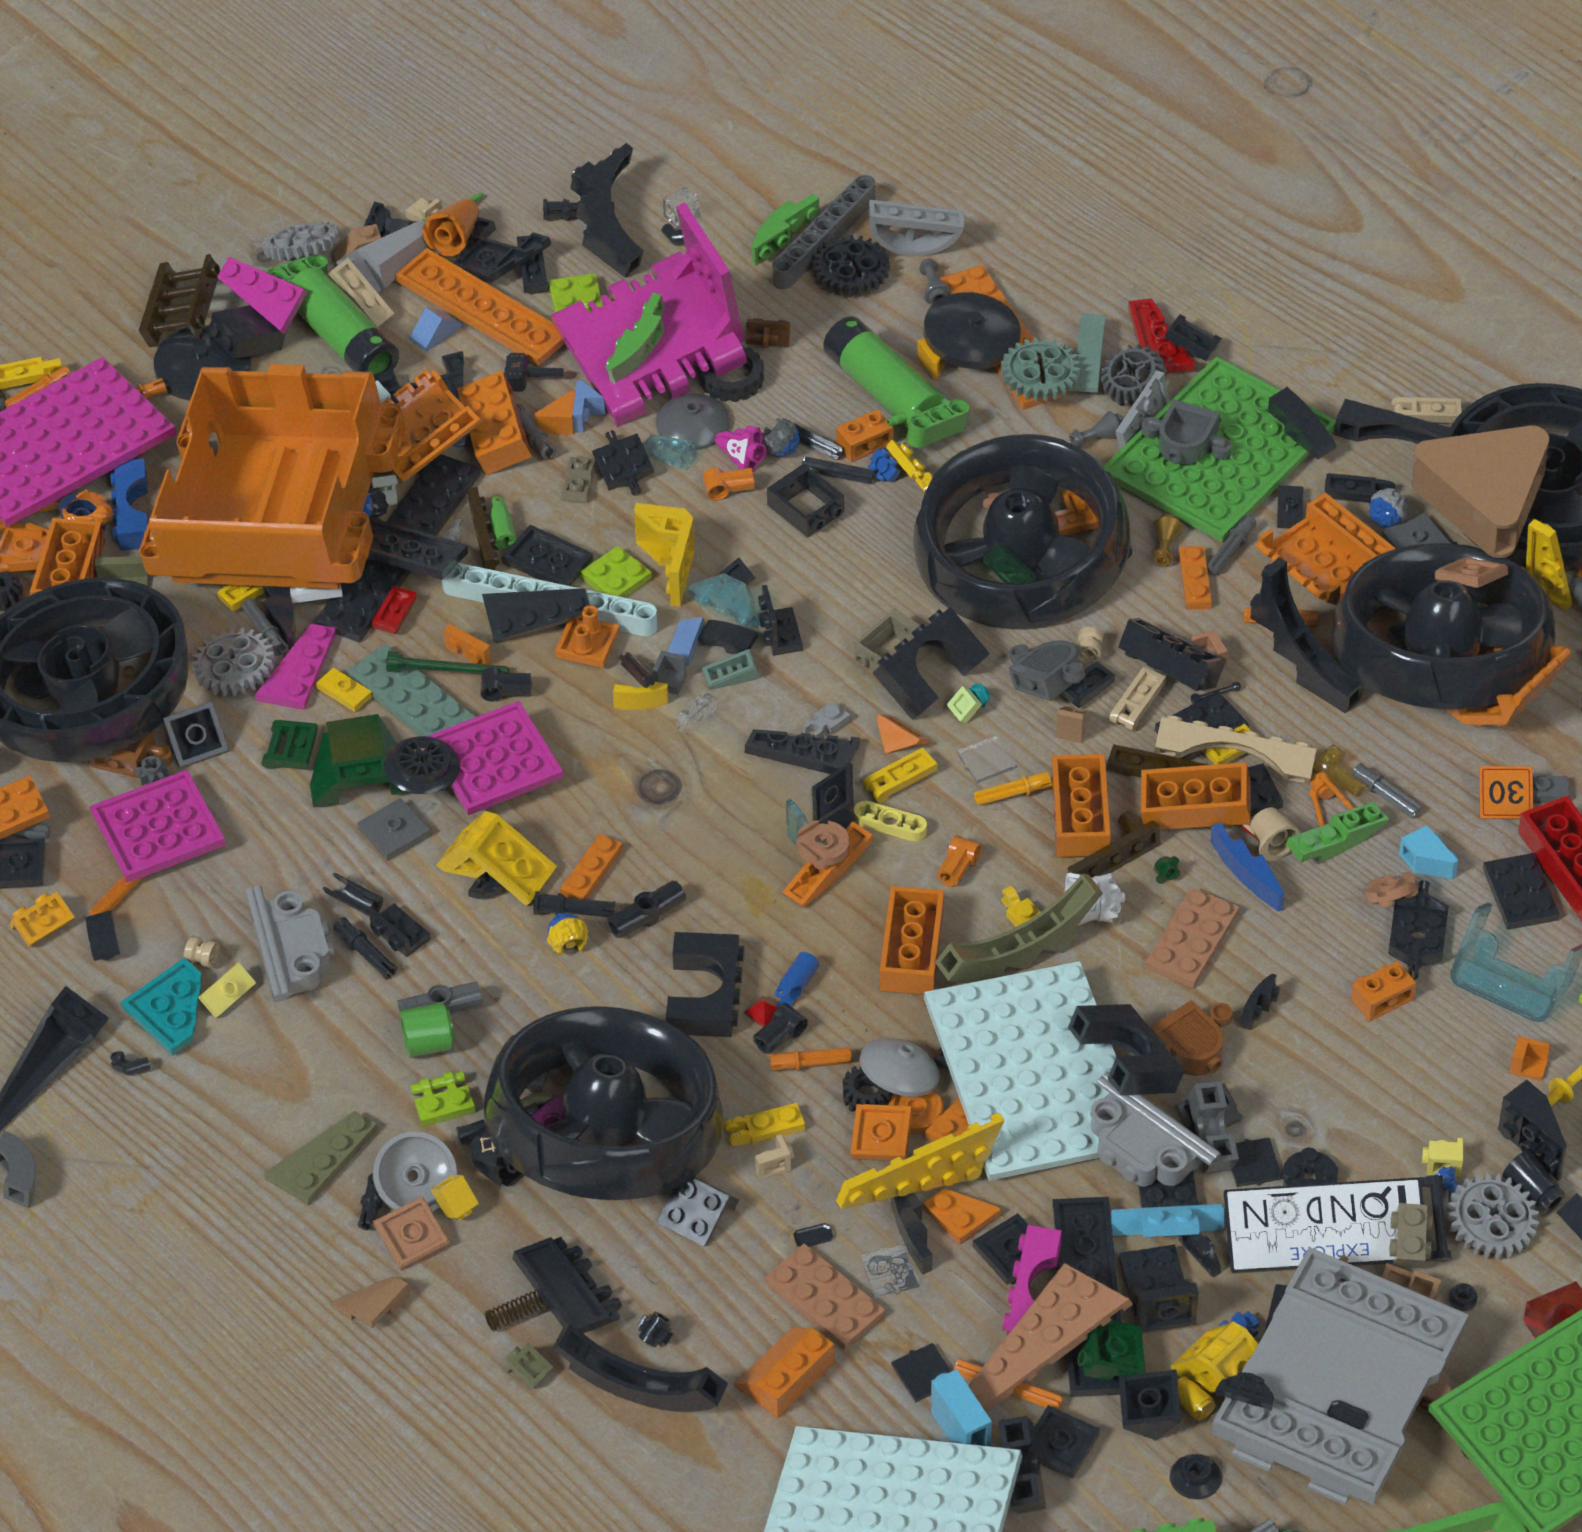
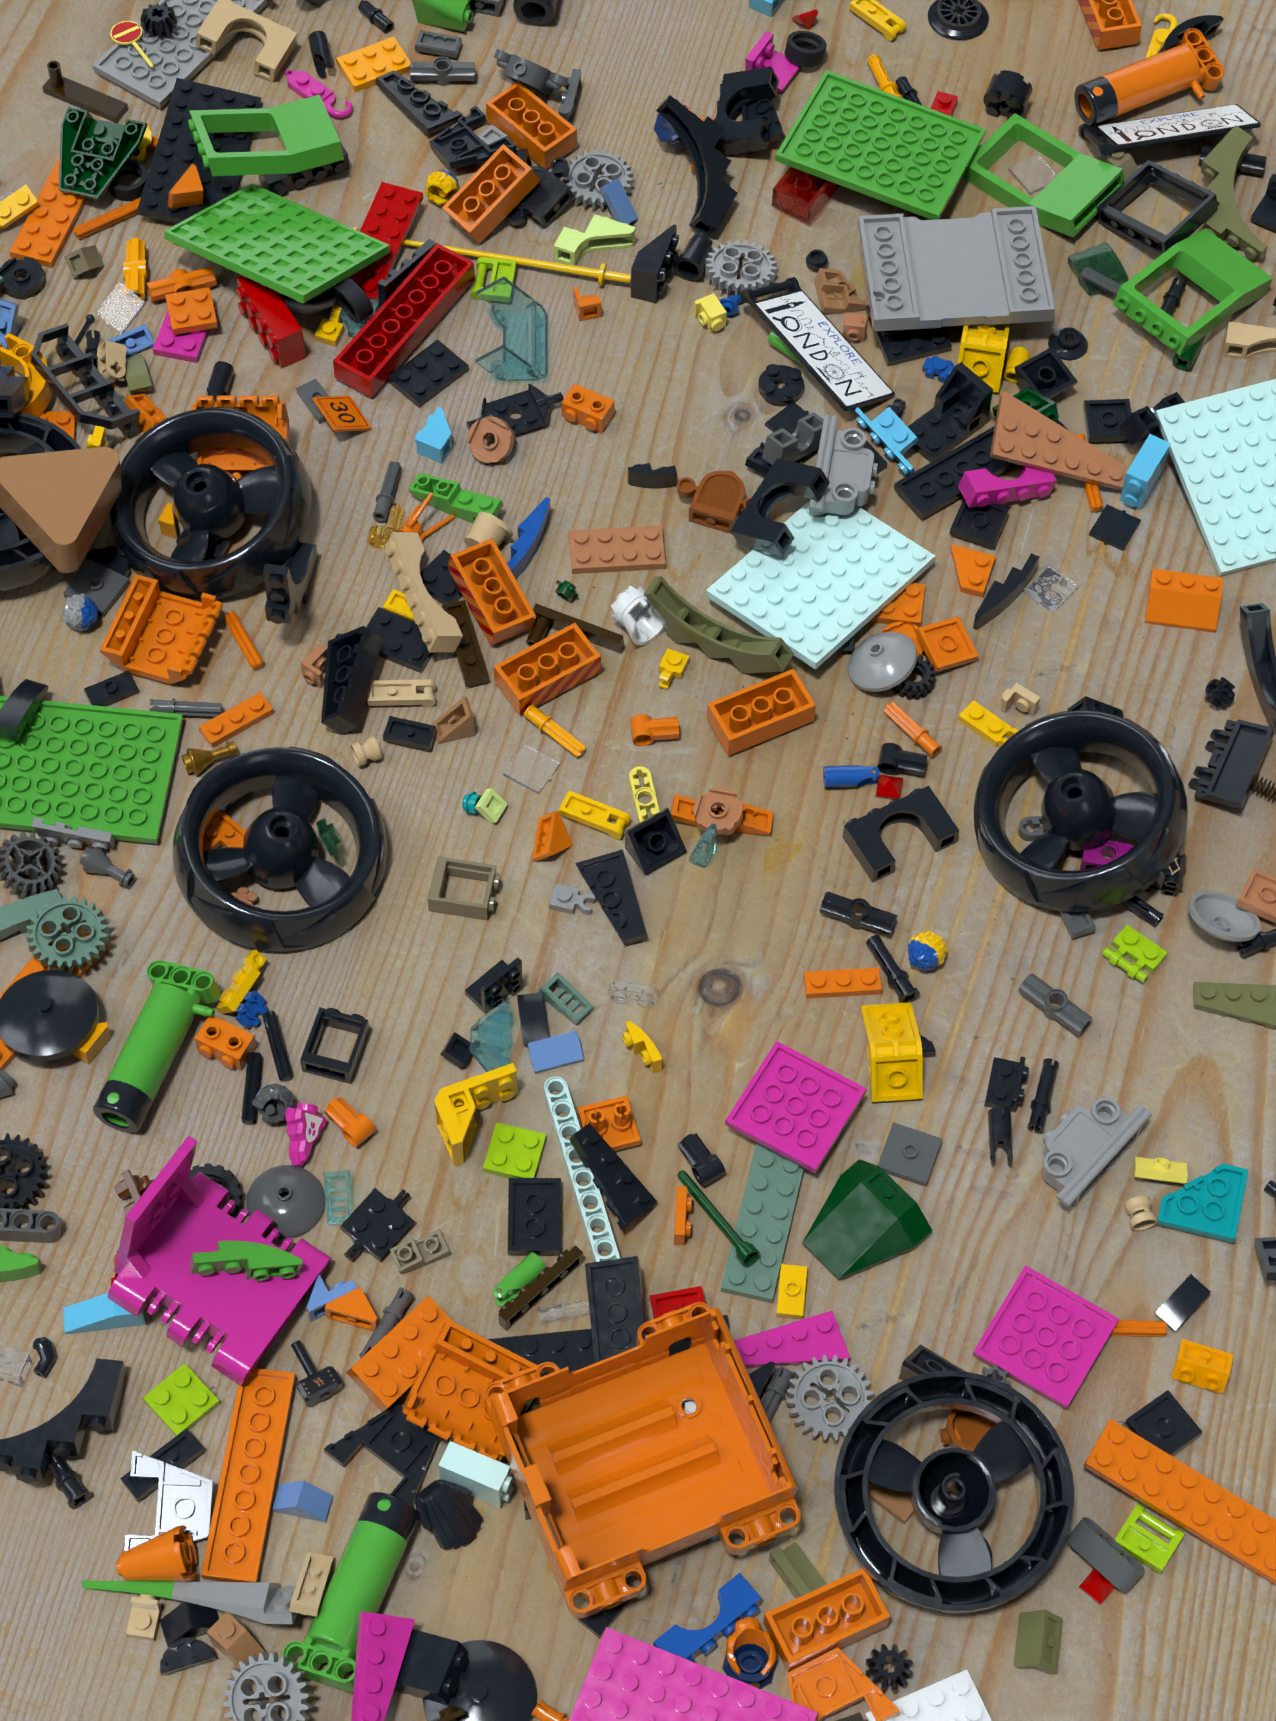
camera: 125 degrees left, 10 degrees up
(297, 747) = (879, 1284): dark green plate -> none
(427, 1029) = (1093, 990): bright green piece -> none
(440, 762) = (842, 1171): black piece -> none
(454, 1197) = (1220, 880): yellow brick -> none
(637, 670) = (623, 1057): black axle -> none
(670, 669) = (604, 1040): dark grey panel -> none
(813, 1235) = (1058, 649): black piece -> none
(824, 1296) = (1104, 614): nougat plate -> none
(900, 672) = (496, 853): black arch -> none
(932, 1166) = (962, 572): yellow wing -> none
(1046, 668) = (418, 758): dark grey piece -> none
(1187, 433) = (83, 787): dark grey piece -> none
(1246, 1389) = (1021, 296): black plate -> none
(1348, 1414) = (987, 246): black piece -> none
(1354, 487) = (63, 652): black hinge -> none
(1410, 1235) = (802, 291): dark tan brick -> none
(1471, 572) = (153, 489): nougat plate -> none

